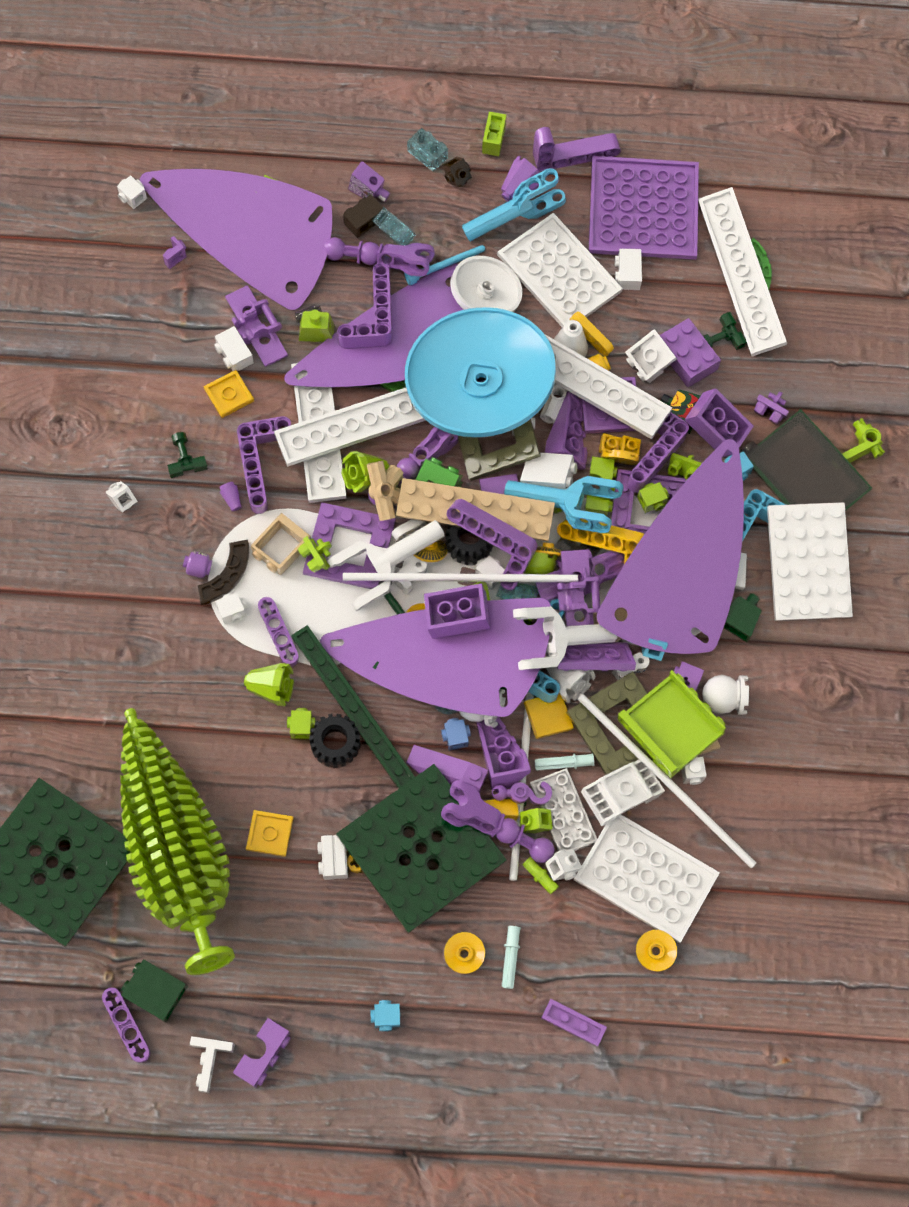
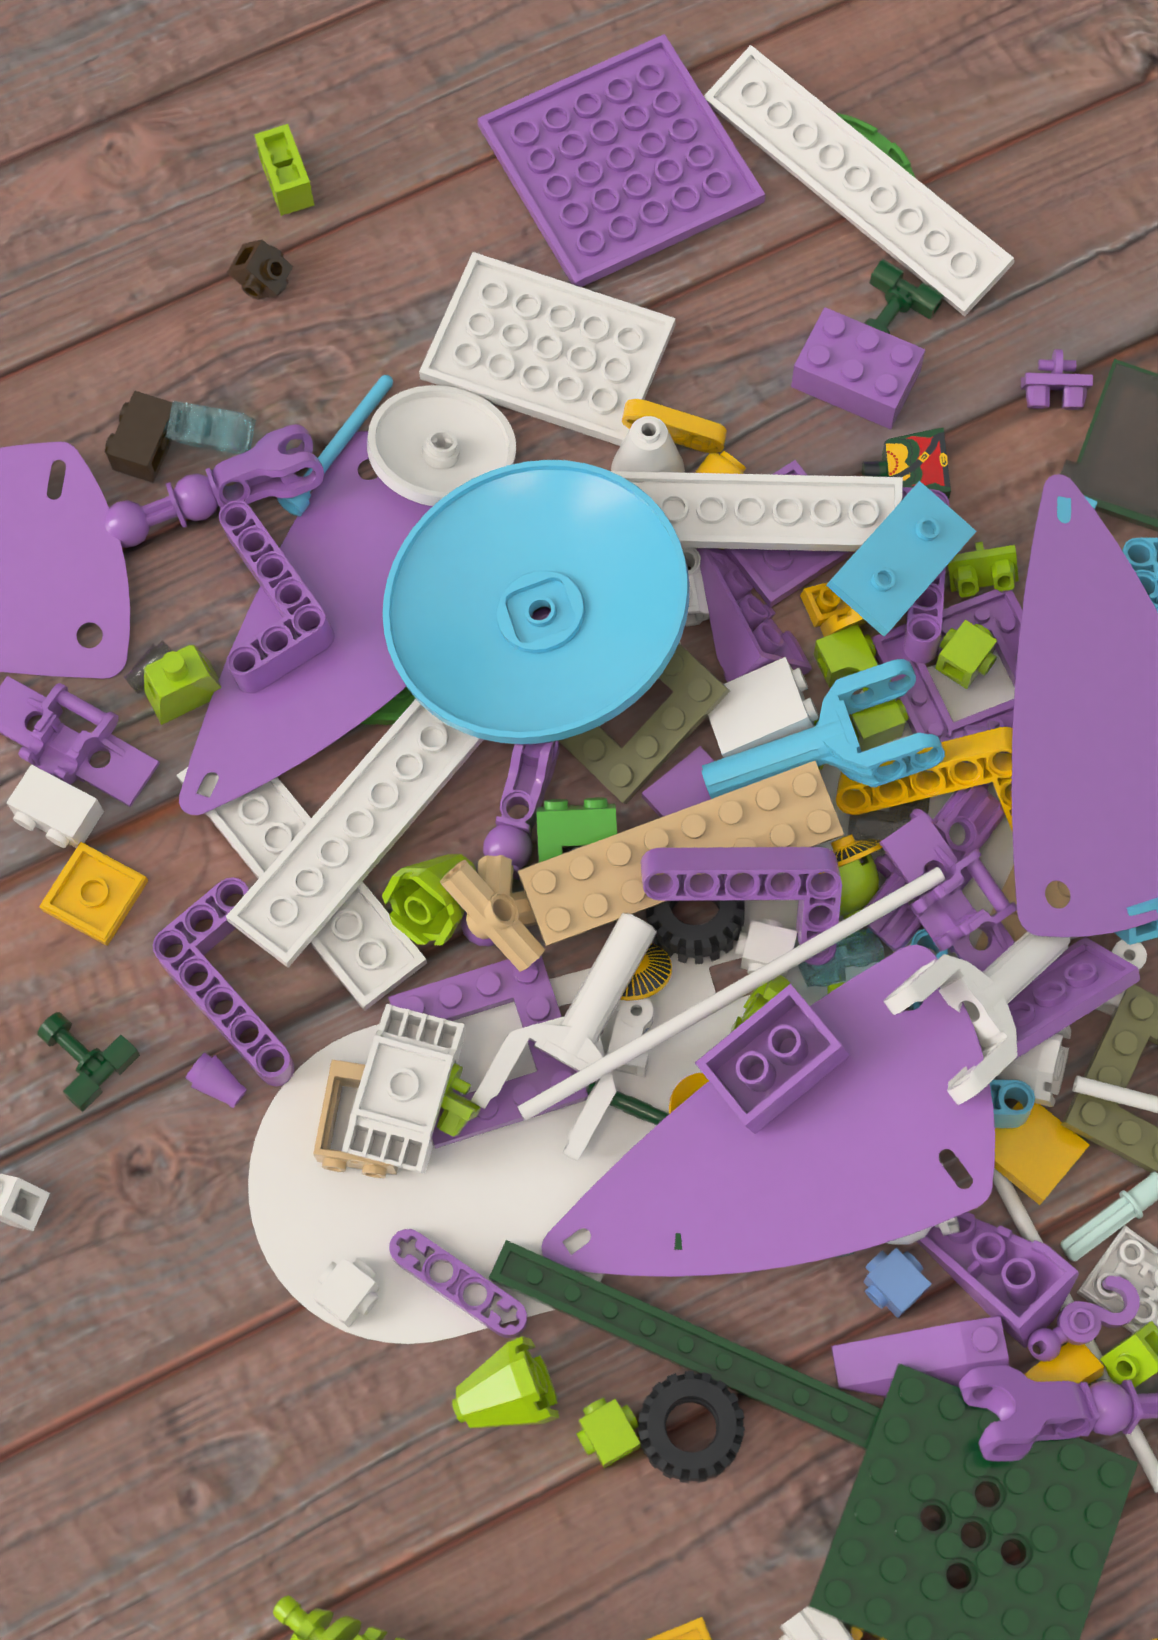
camera: 25 degrees left, 0 degrees up
(197, 564) = (234, 1245): medium lavender head -> none
(229, 577) = (304, 1233): dark brown tile -> none
(301, 538) = (403, 1088): none -> white plate
(366, 181) = (113, 373): medium lavender torso -> none
(407, 528) = (575, 958): white beam -> none
(425, 151) = (180, 266): clear light blue brick -> none
(519, 172) = (384, 224): medium lavender cone -> none
(519, 205) = (411, 269): medium azure piece -> none
(555, 156) = (407, 153): medium lavender beam -> none
(629, 269) = (664, 278): white brick -> none
(648, 440) = (901, 558): none -> medium azure plate
(650, 356) = (801, 409): white plate -> none
(718, 420) = (992, 458): medium lavender brick -> none

